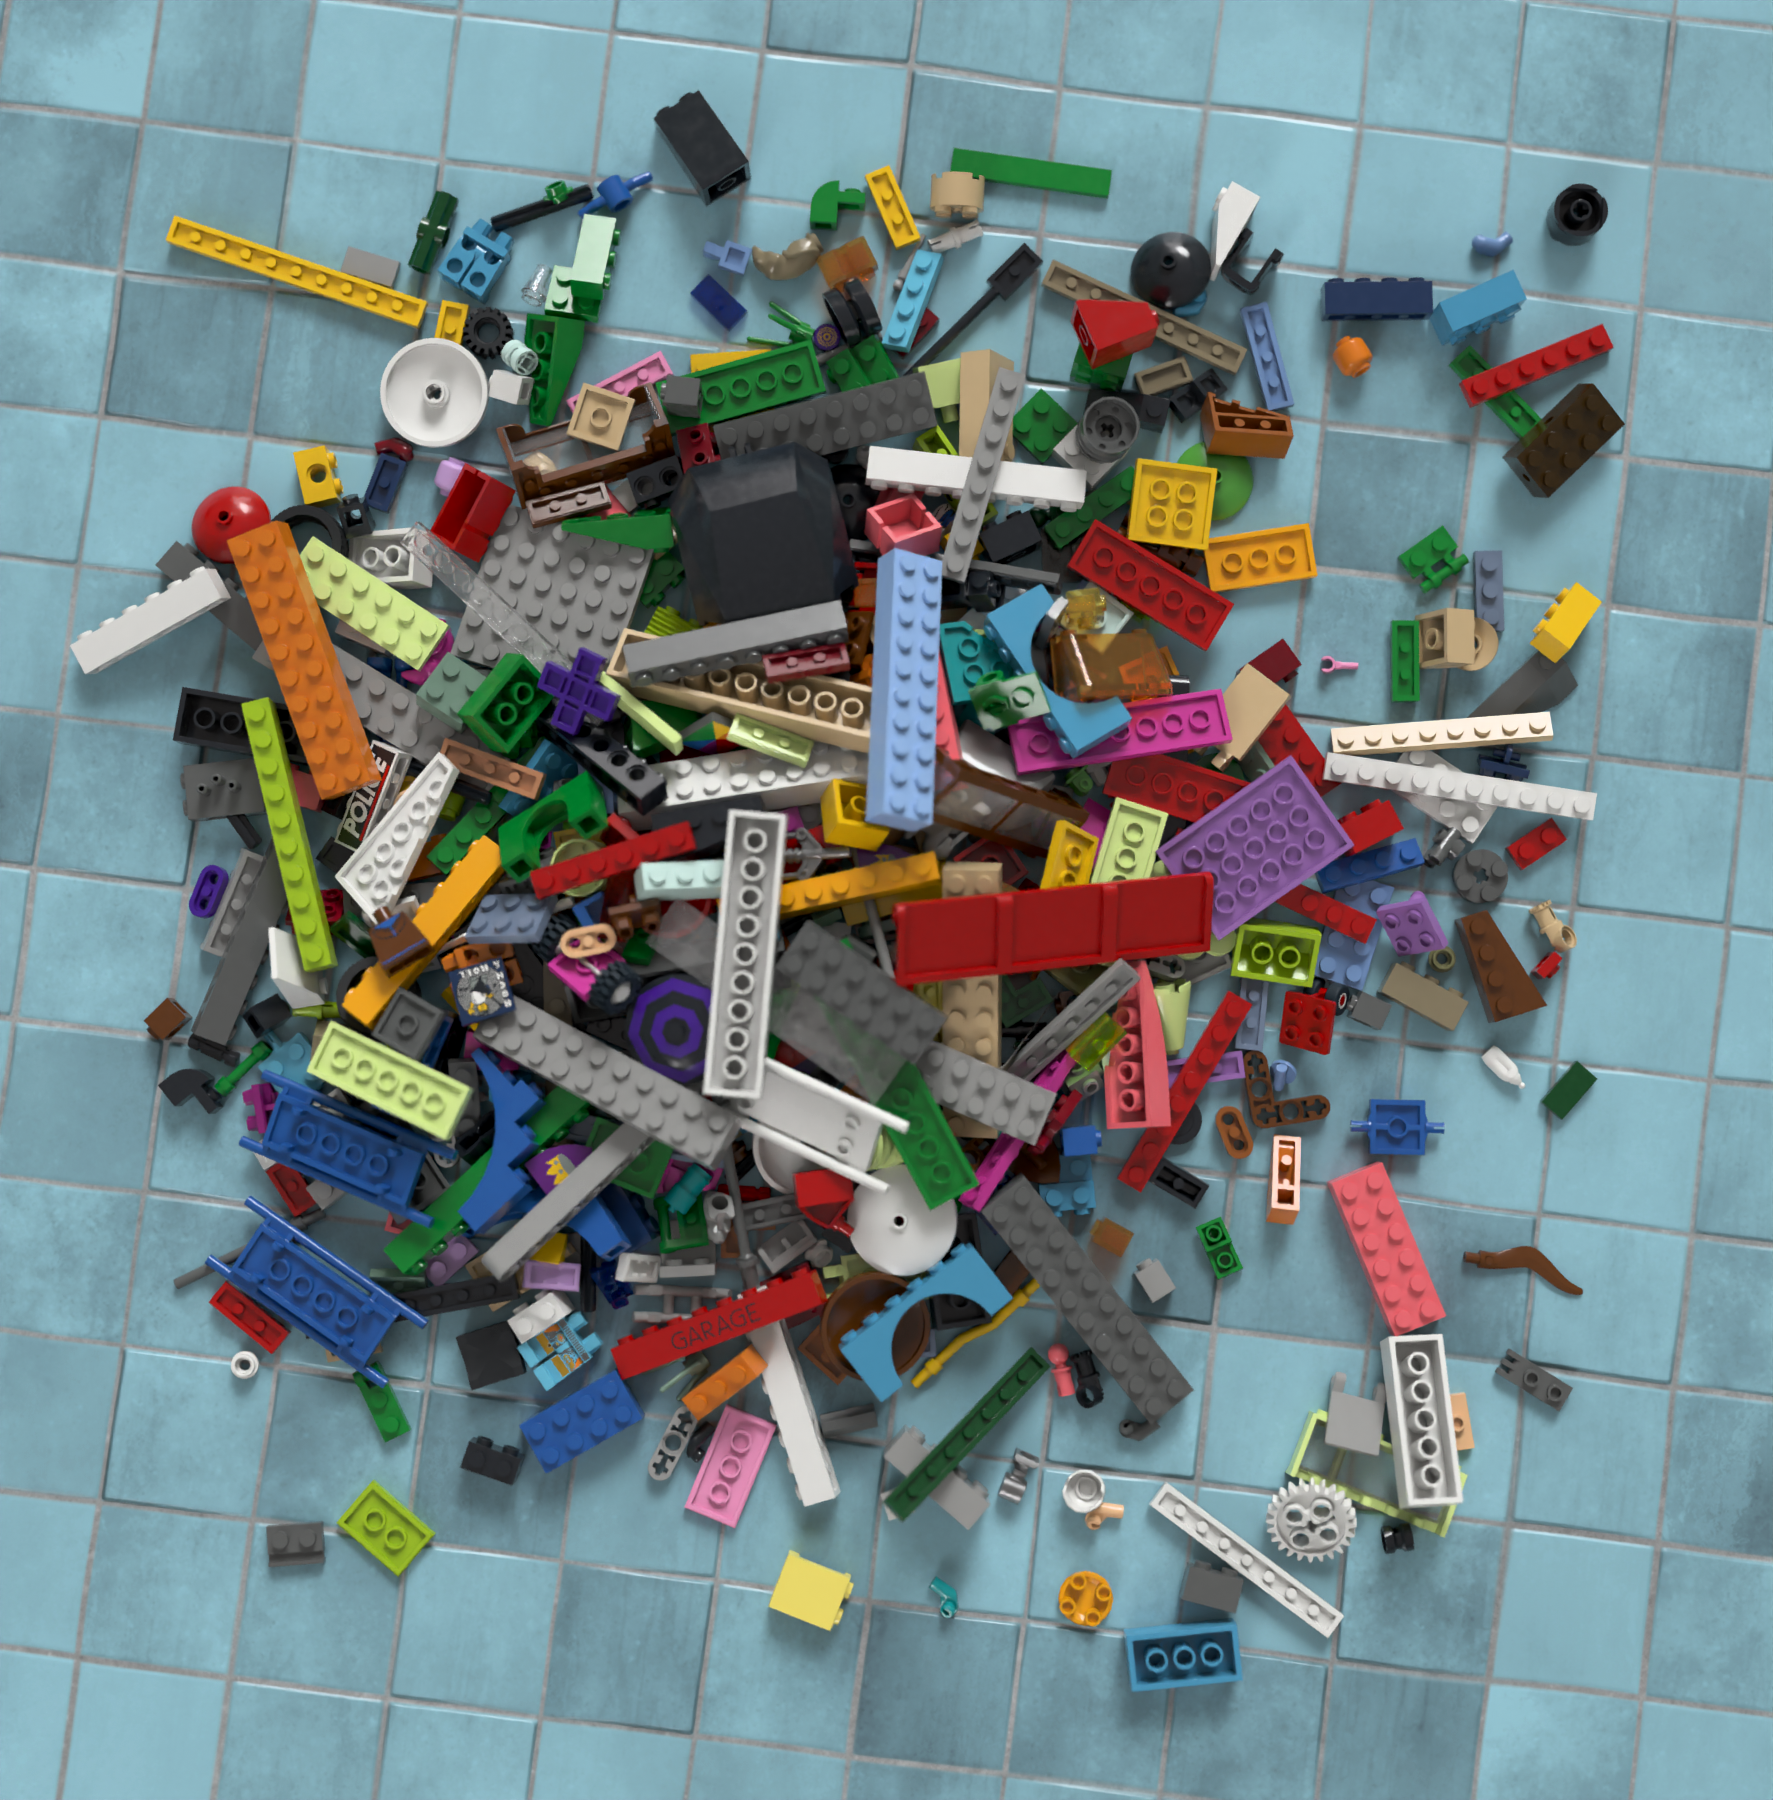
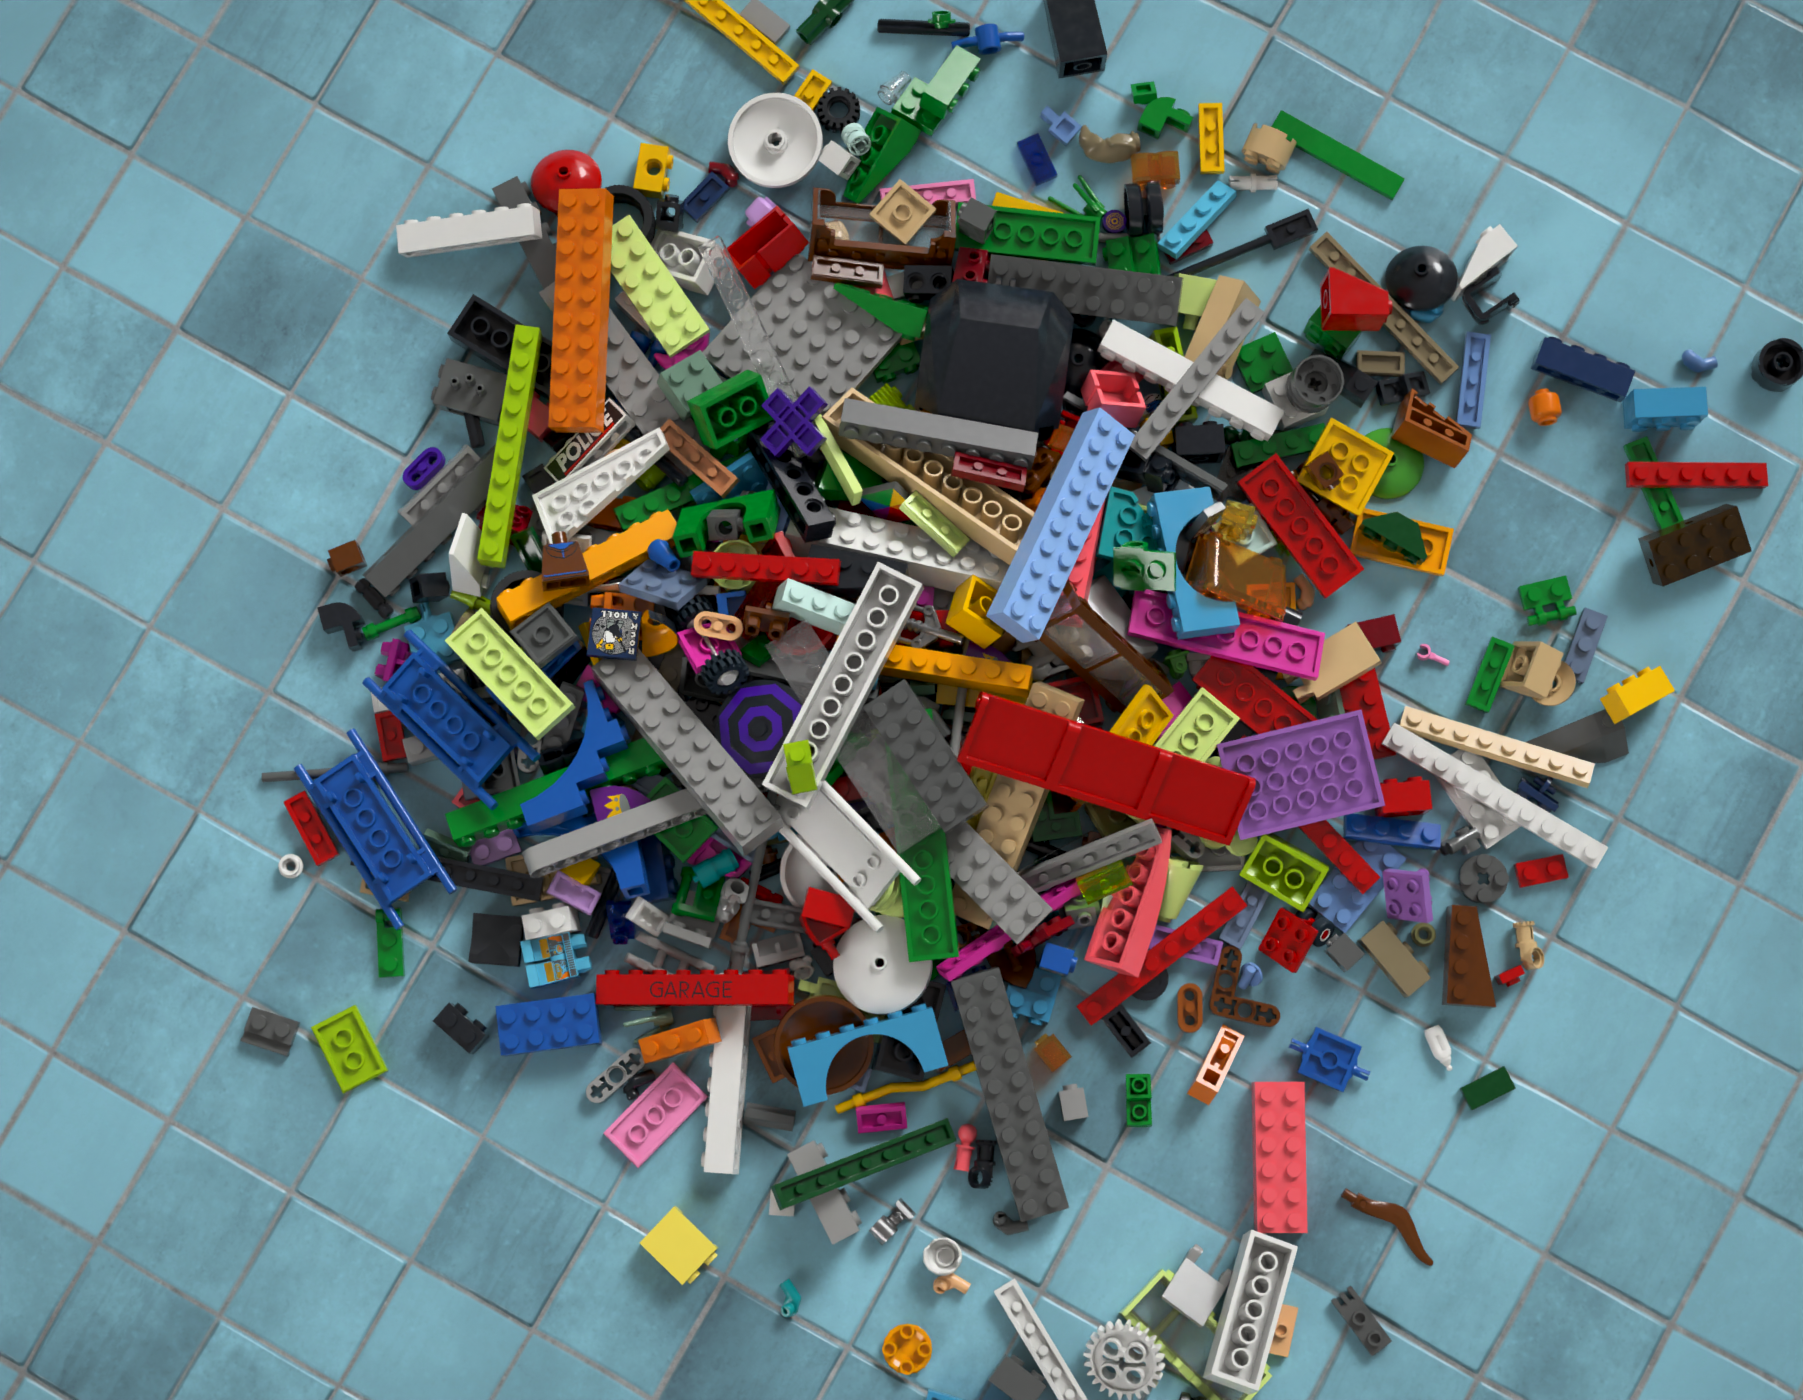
camera: 25 degrees right, 5 degrees down
(477, 261) = (853, 49): dark azure hips -> none
(498, 886) = (662, 553): none -> blue cone
(530, 973) = (657, 638): none -> light orange piece
(546, 838) = (718, 531): none -> dark grey brick
(736, 1059) = (800, 767): none -> lime slope
(802, 186) = (1143, 92): none -> green plate
(898, 284) = (1191, 201): light grey piece -> none
(963, 1374) = (881, 1117): none -> dark pink plate
(1142, 514) = (1313, 470): none -> reddish brown brick
(1183, 650) = (1307, 592): none -> light nougat arm
(1253, 553) = (1396, 534): none -> dark green slope

